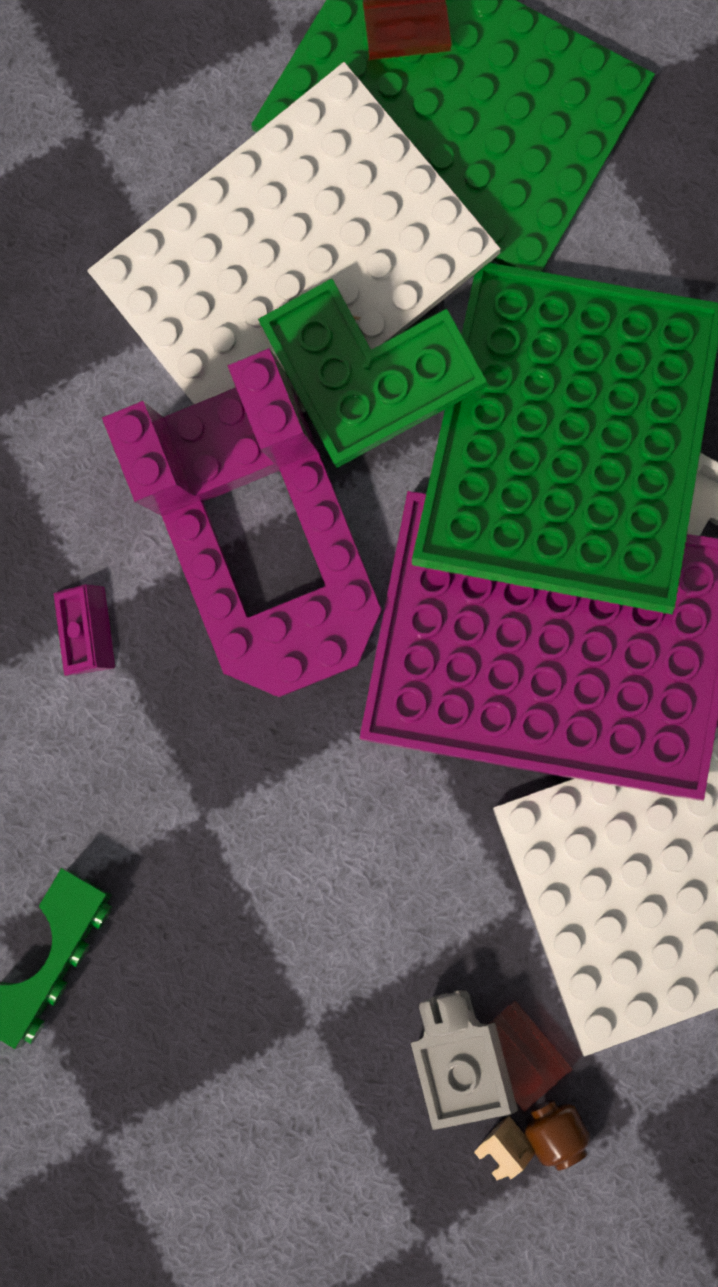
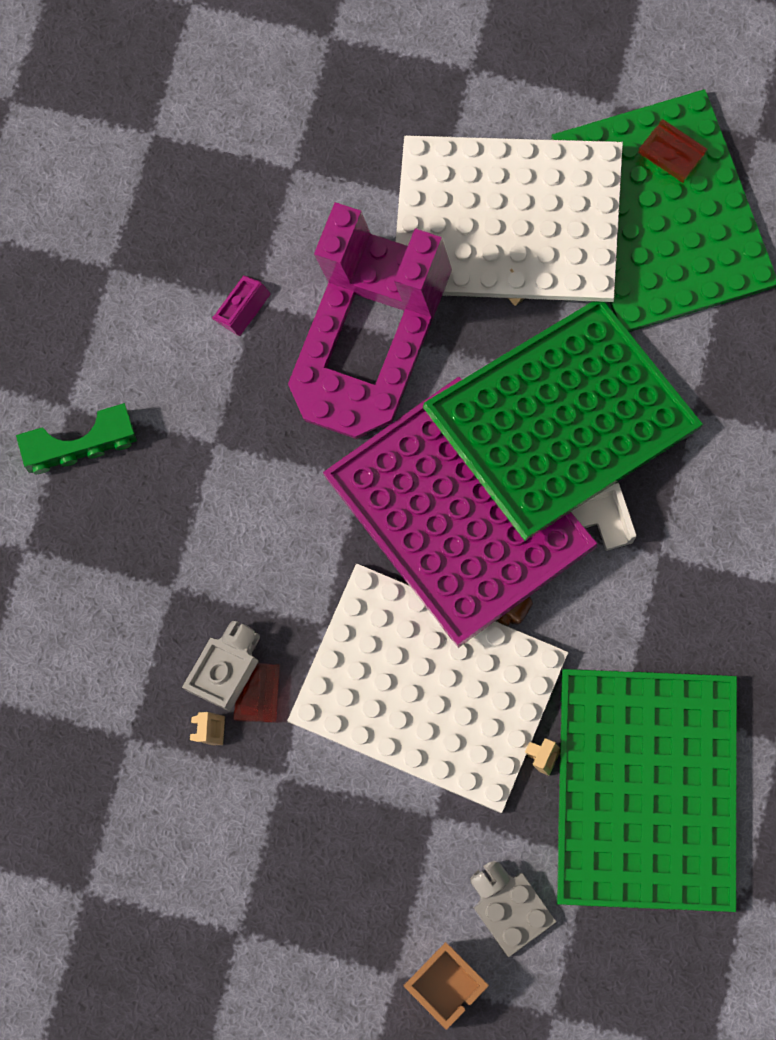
camera: 40 degrees right, 5 degrees down
(362, 393) = (479, 308): green plate -> none
(558, 1135) = (238, 744): reddish brown head -> none

